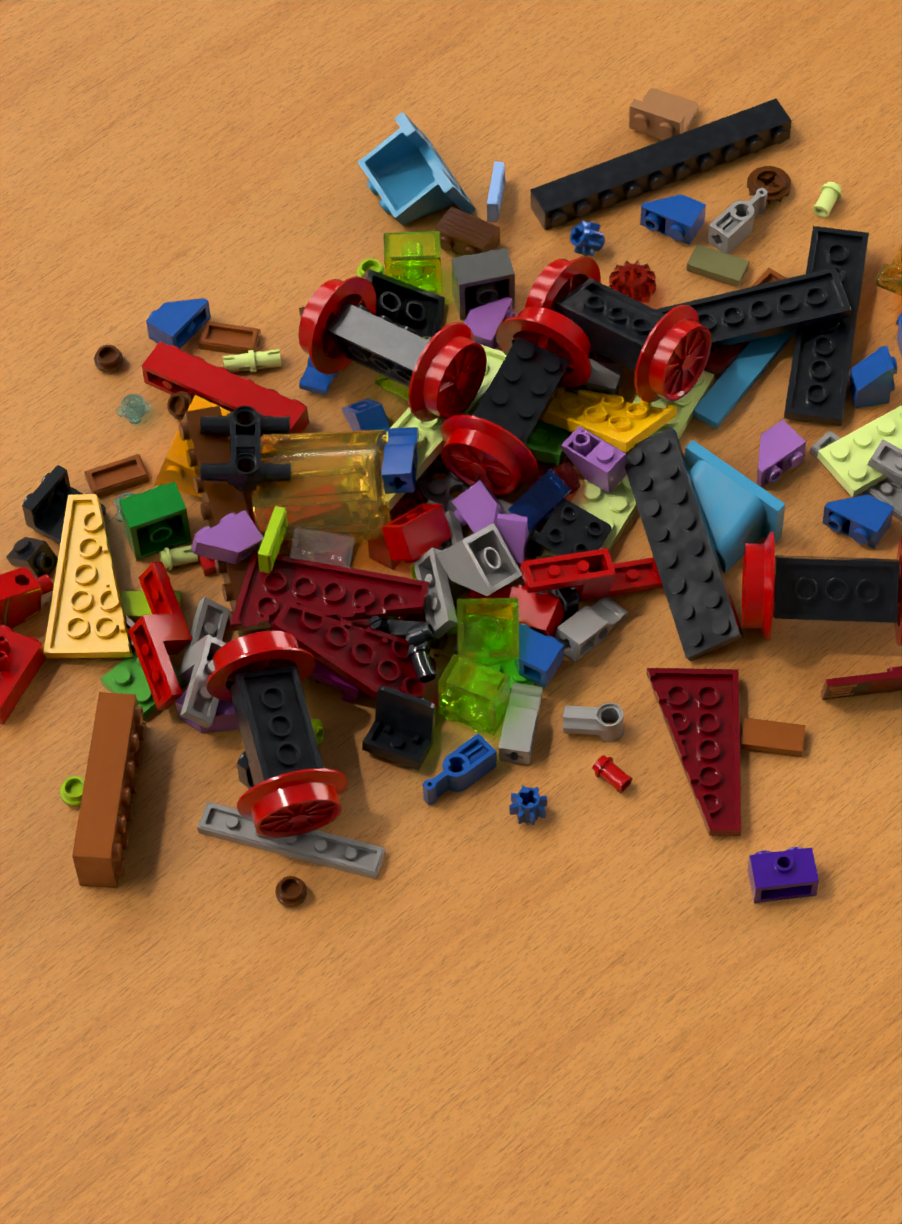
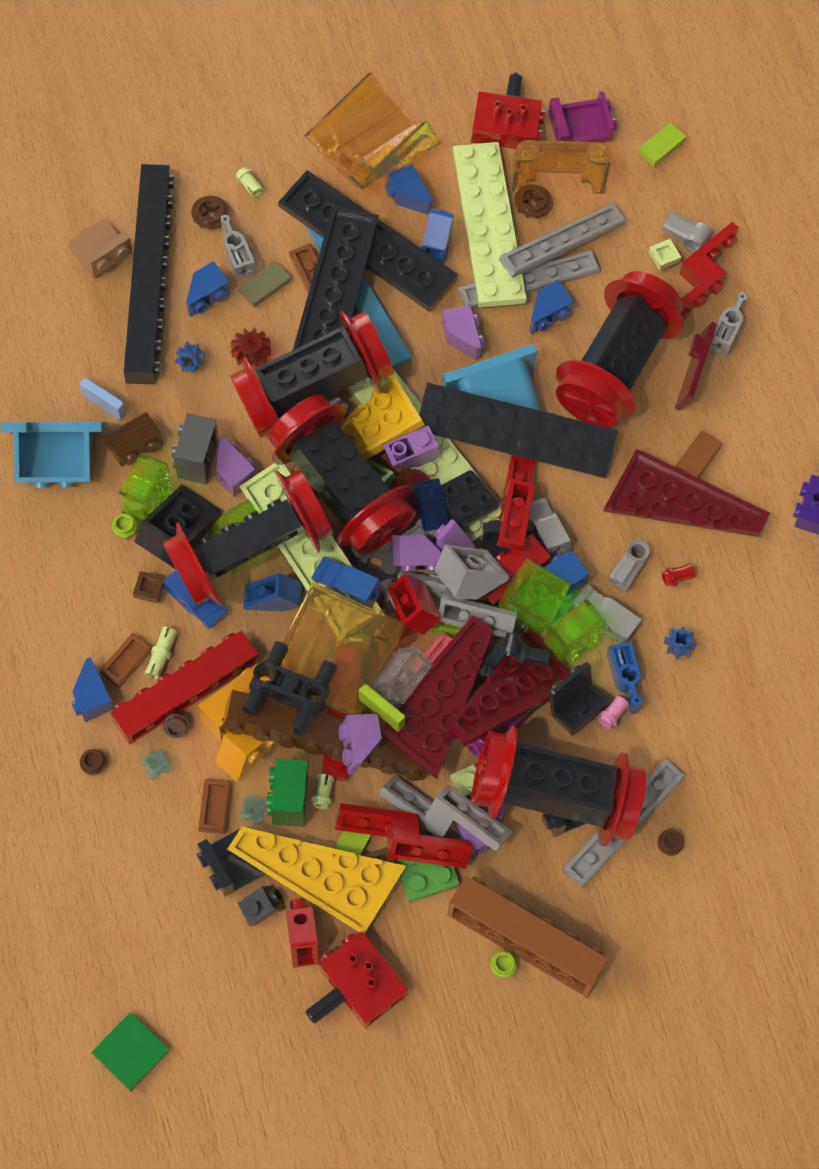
camera: 70 degrees left, 10 degrees up
(409, 776) = (610, 716): none -> bright pink pin

